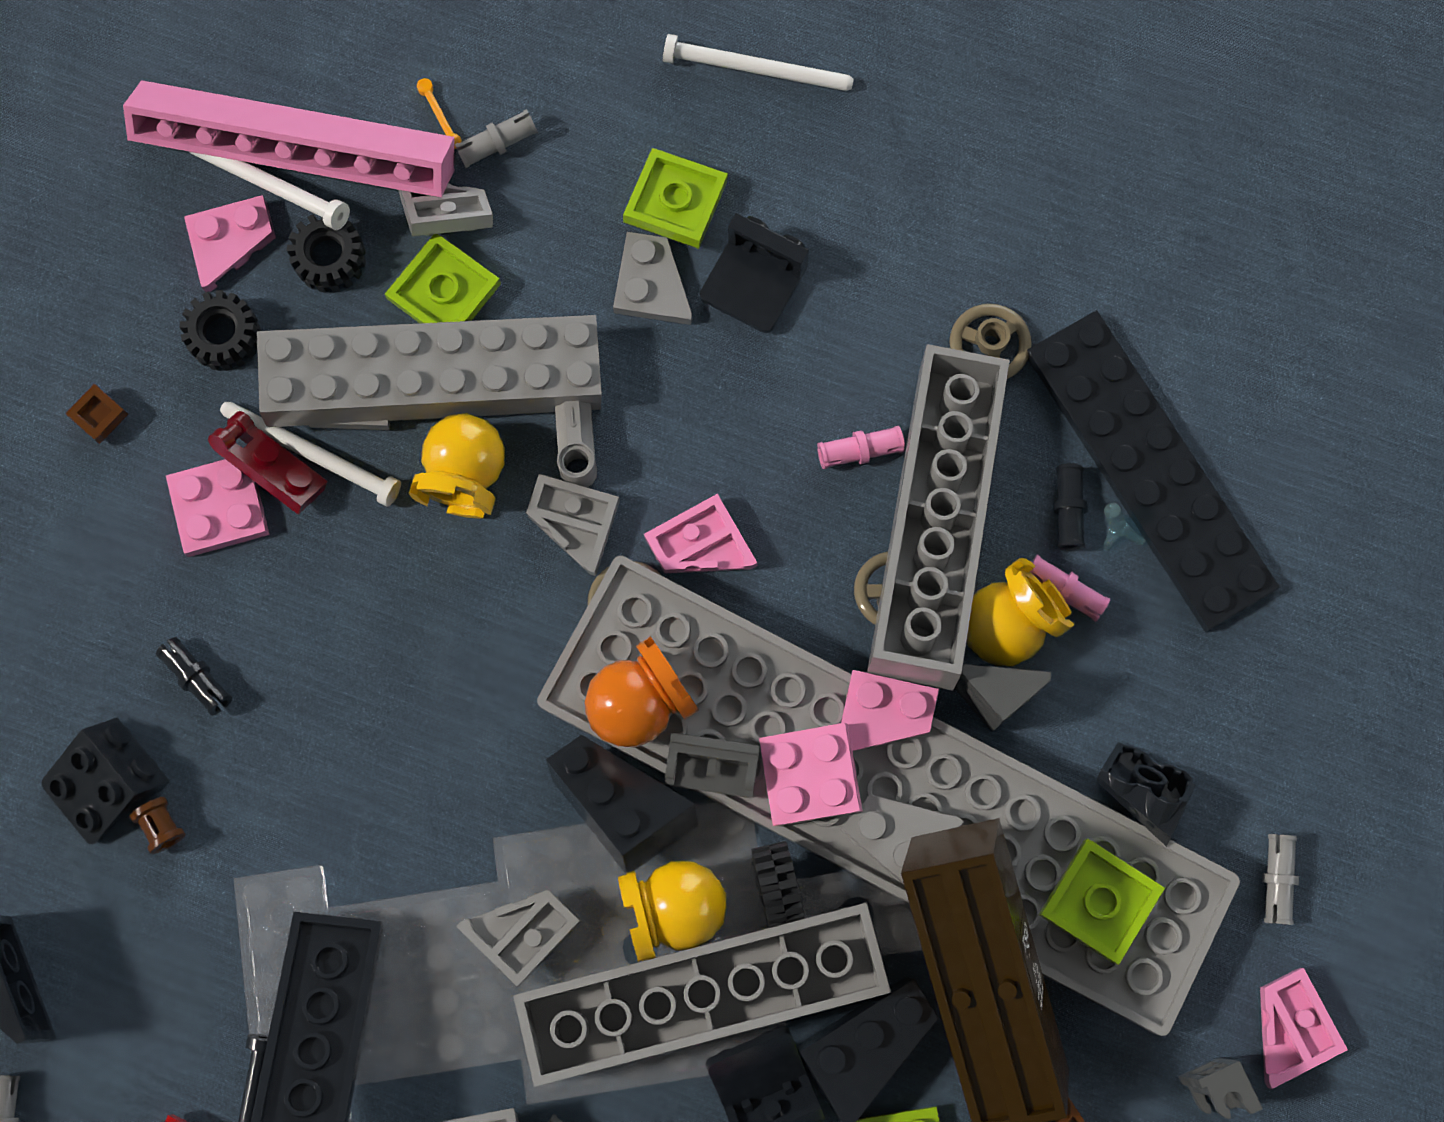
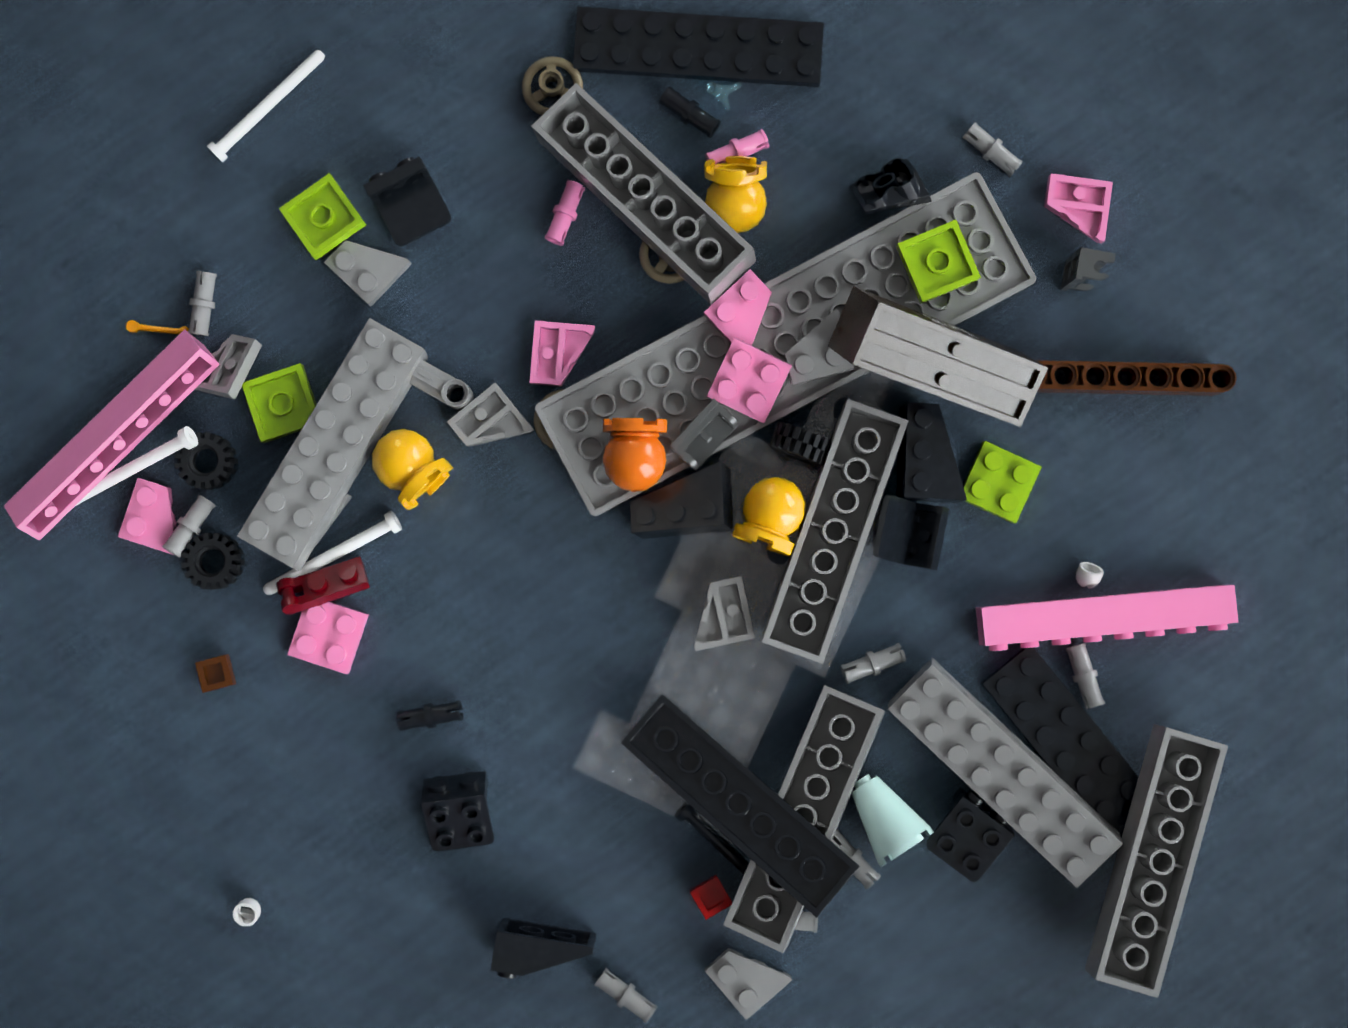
camera: 55 degrees left, 10 degrees up
(157, 825) = (509, 794): reddish brown bush -> none
(242, 280) = (189, 526): none -> light grey pin
(998, 691) = (777, 234): dark grey slope -> none

